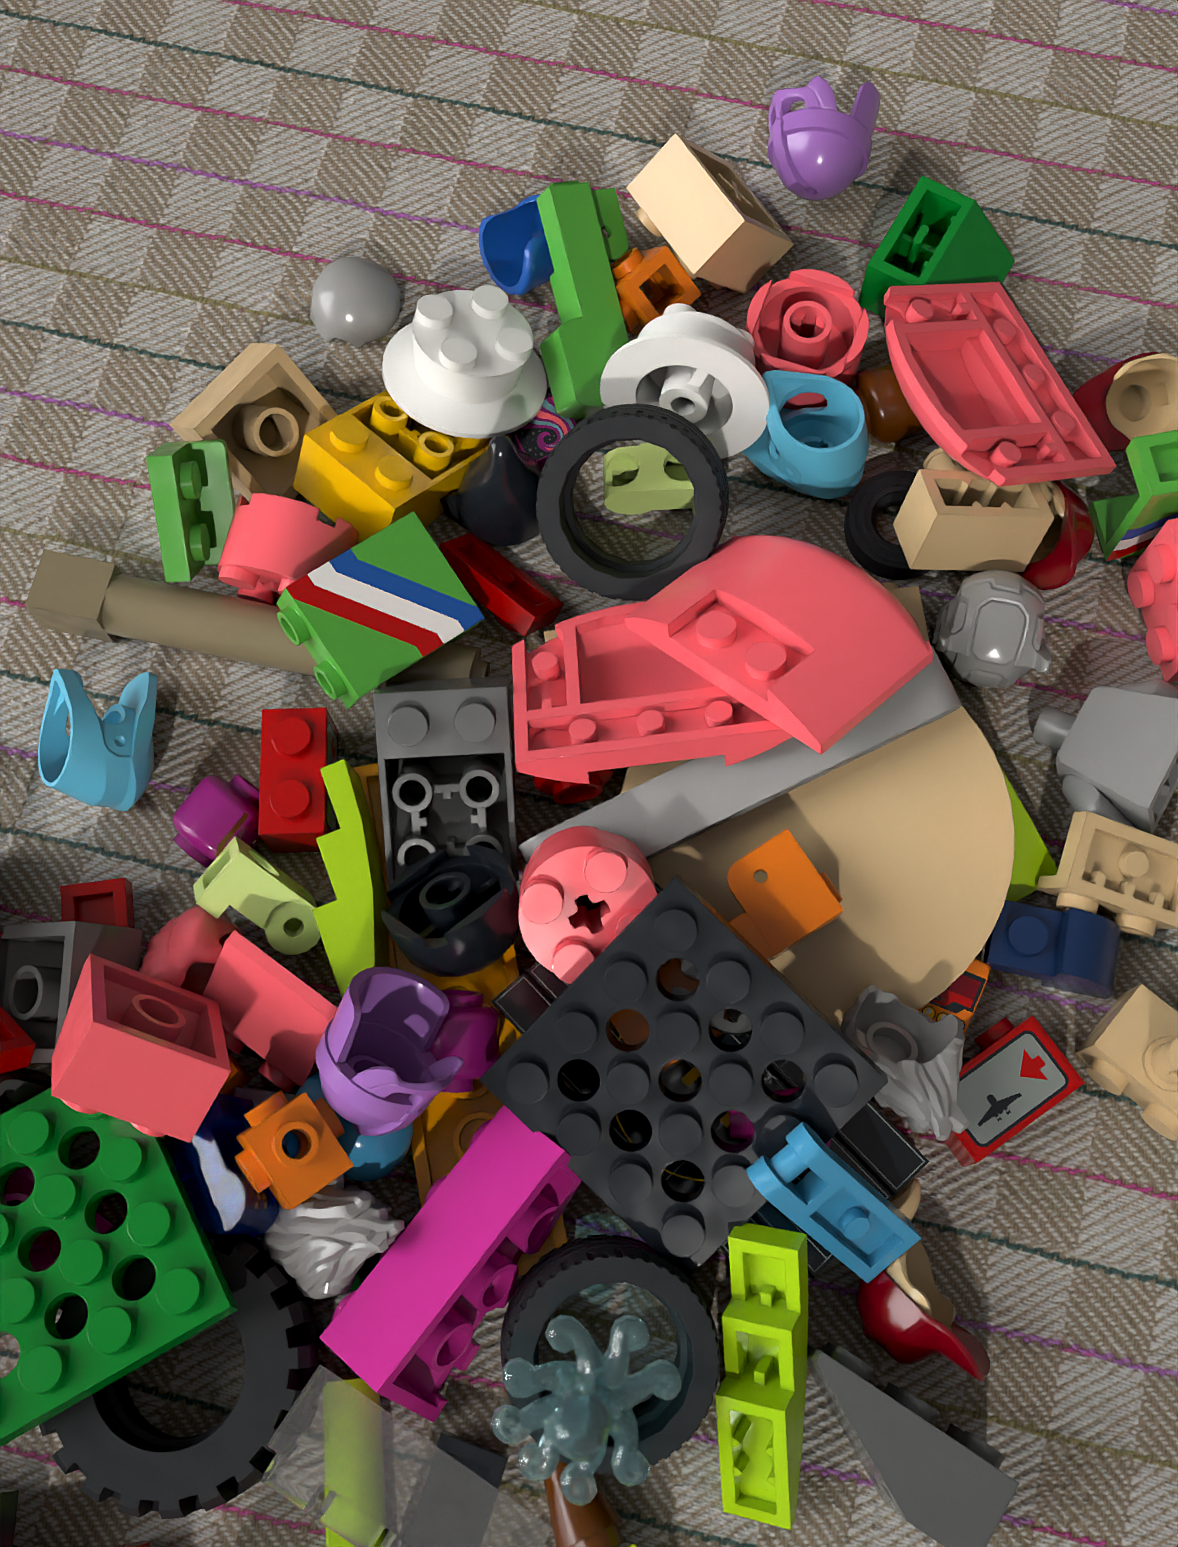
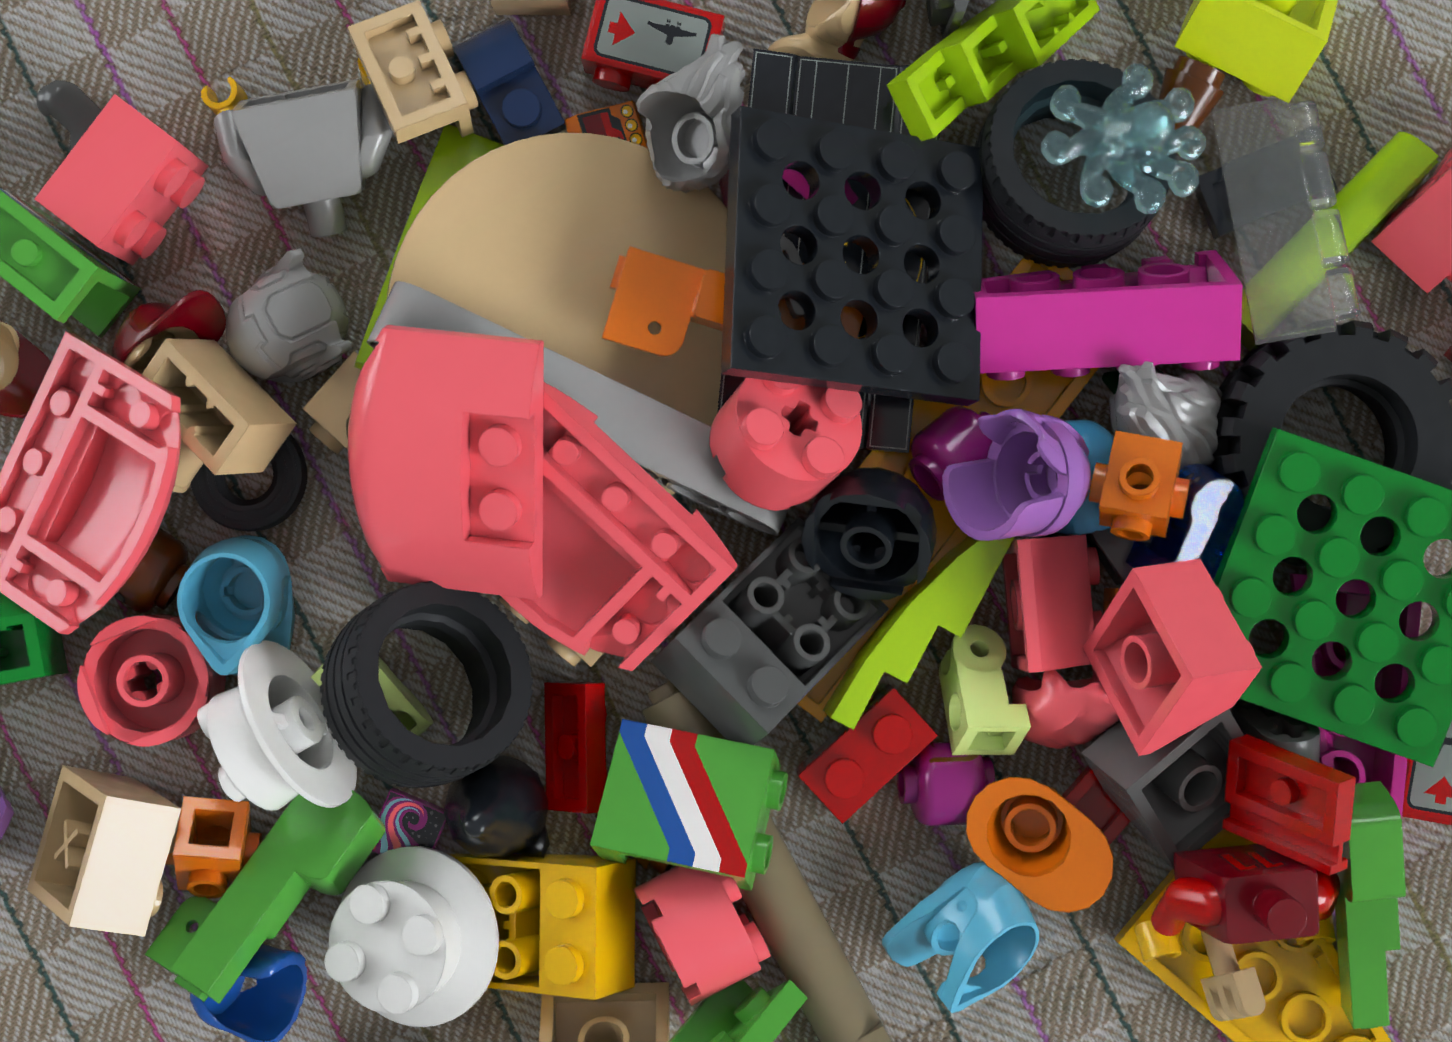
camera: 135 degrees left, 15 degrees up
(108, 841) = (1040, 844): none -> orange piece
(833, 1204) = (851, 83): dark azure plate -> none

